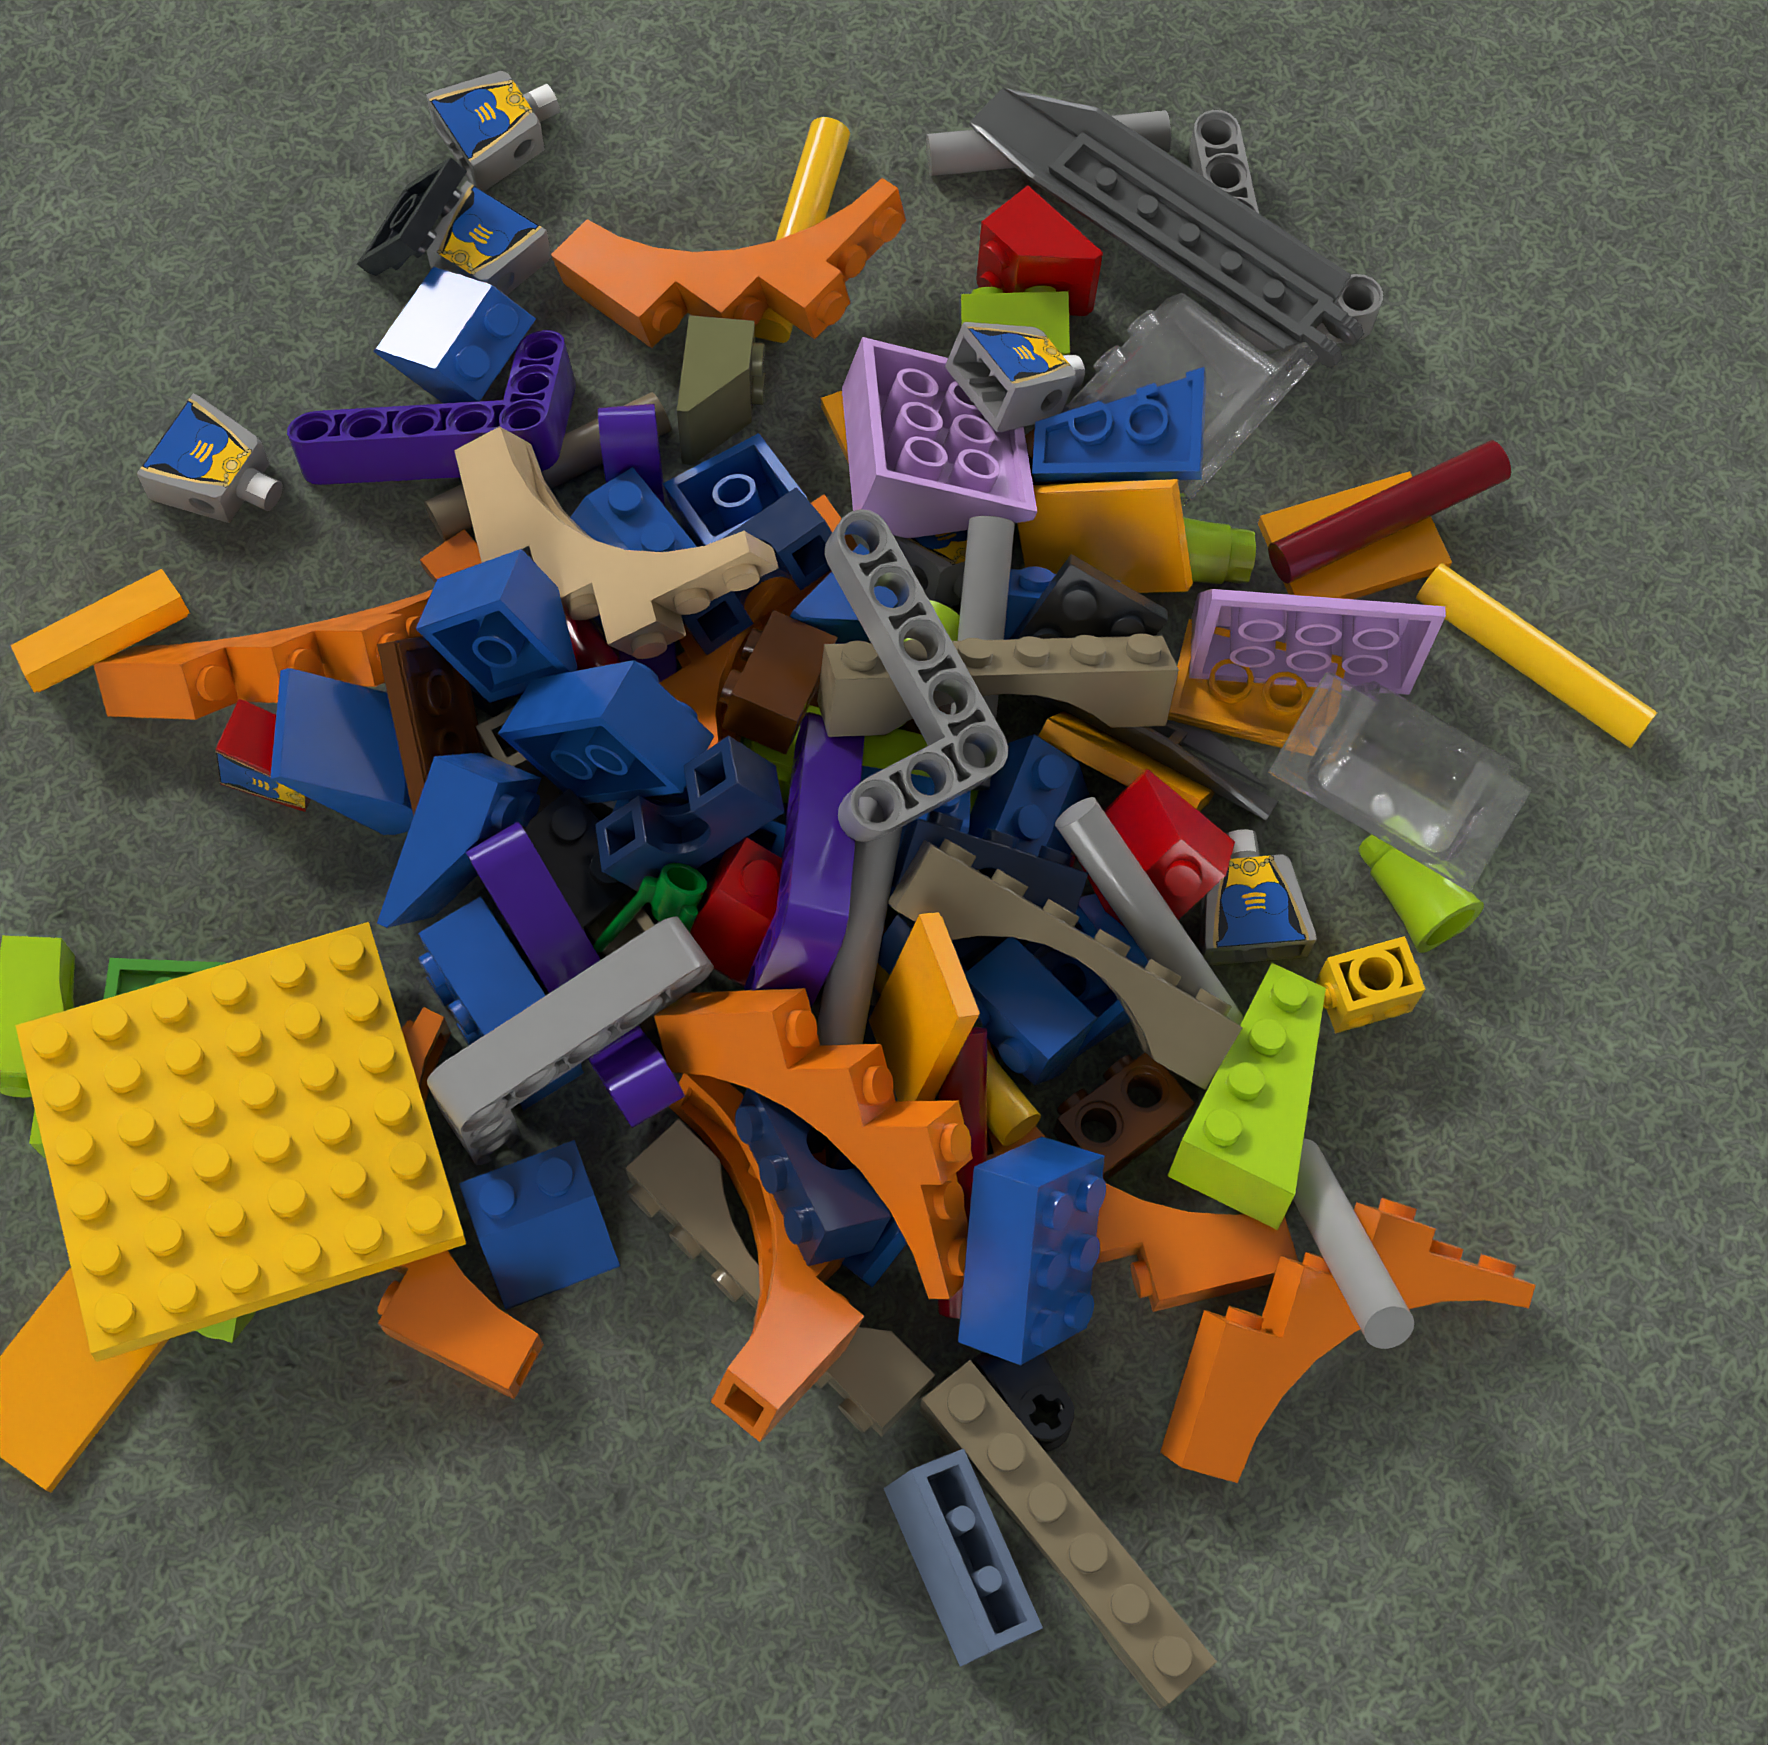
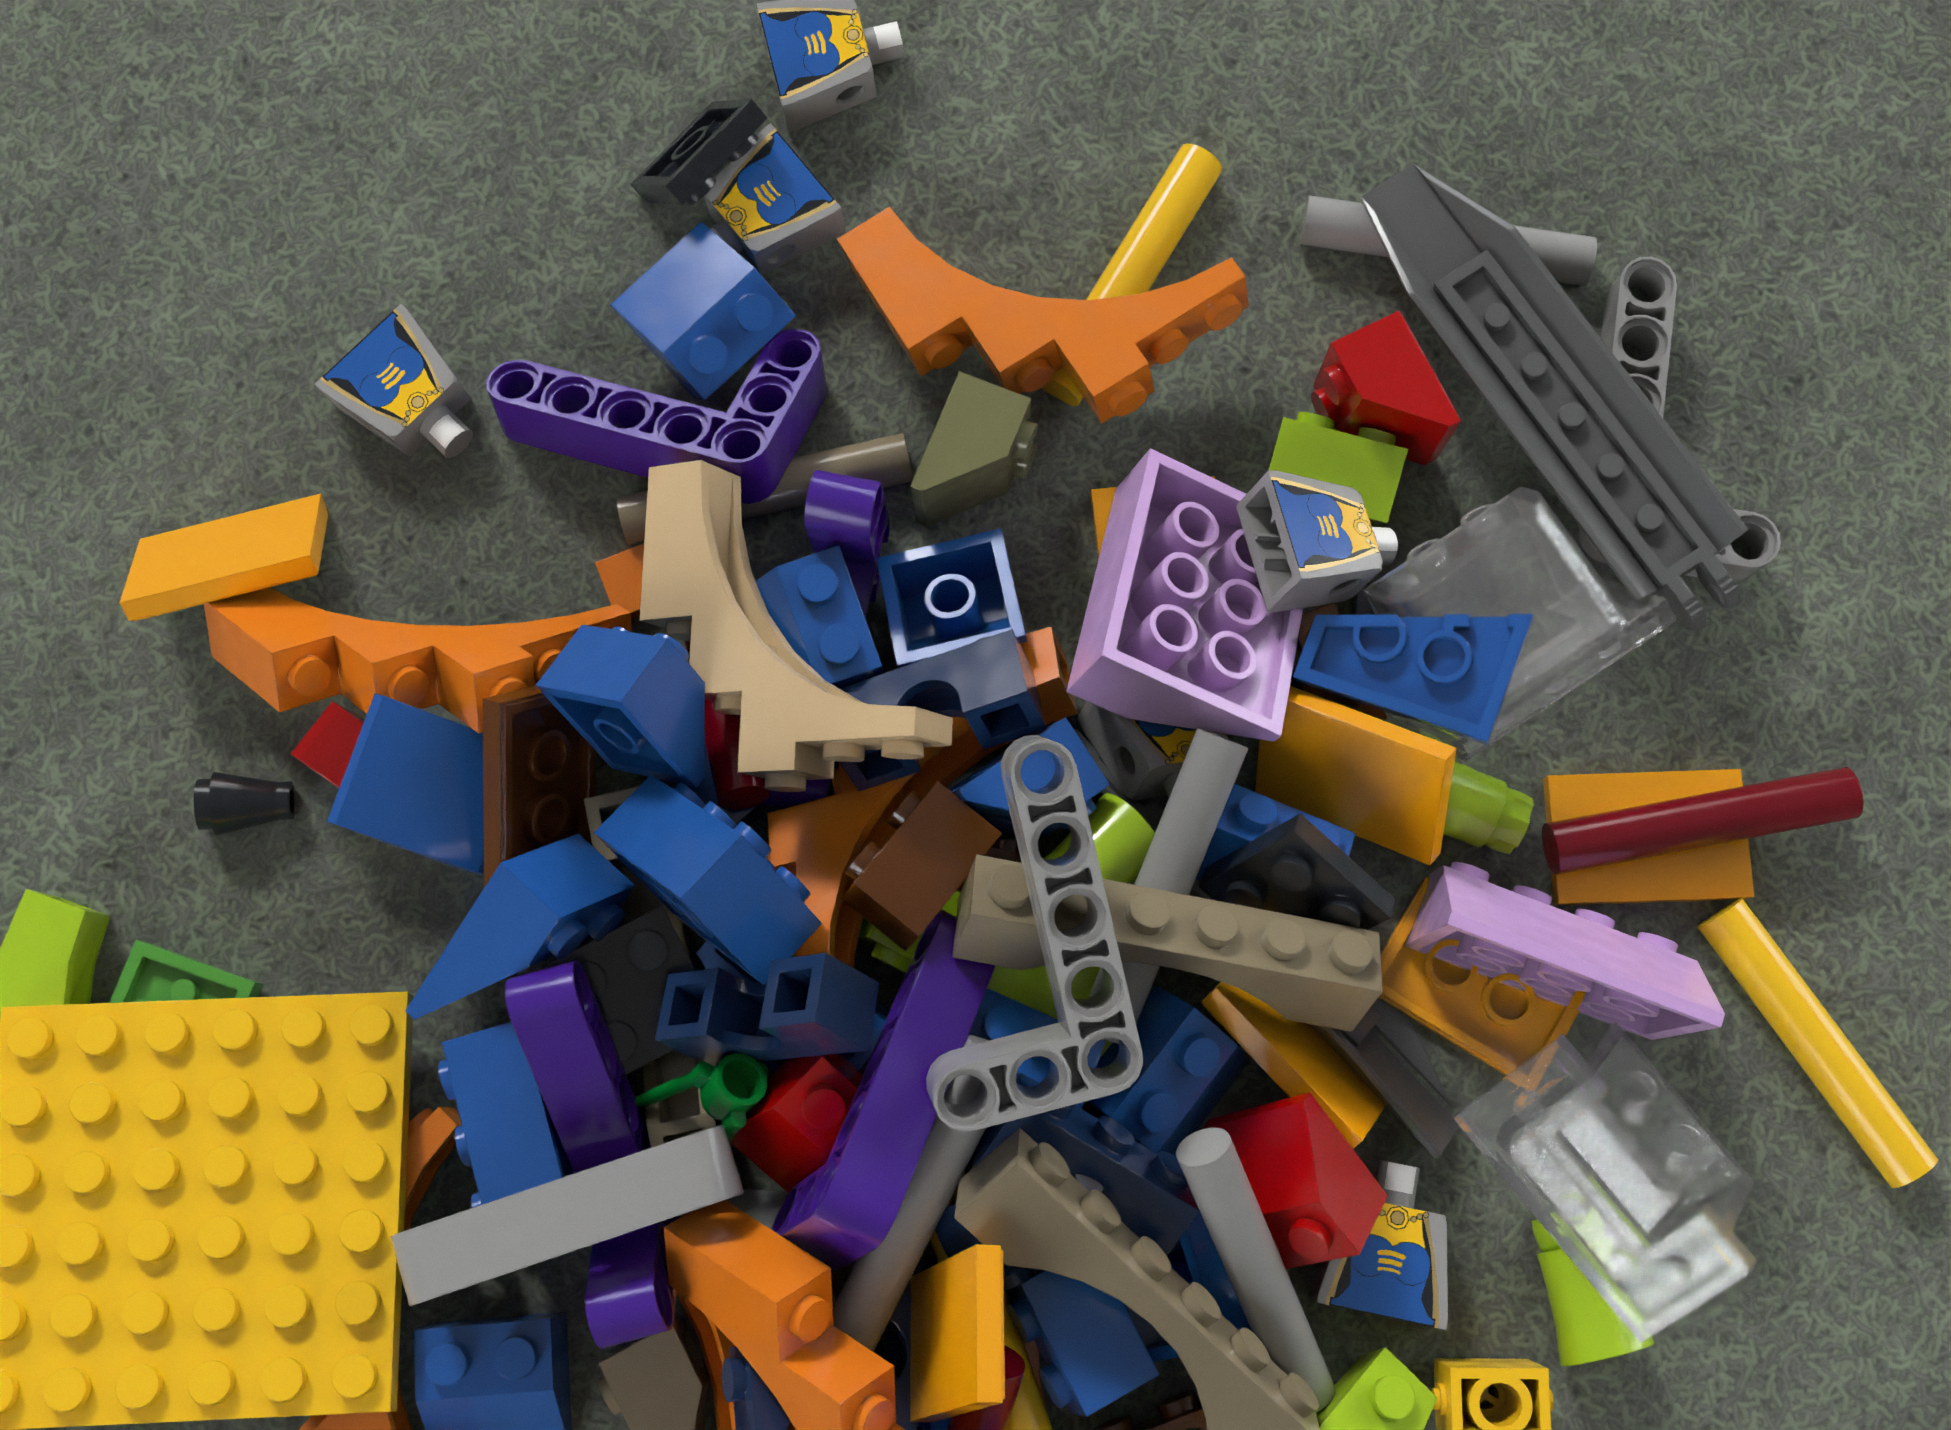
camera: 25 degrees right, 10 degrees up
(167, 827) = (240, 802): none -> black cone

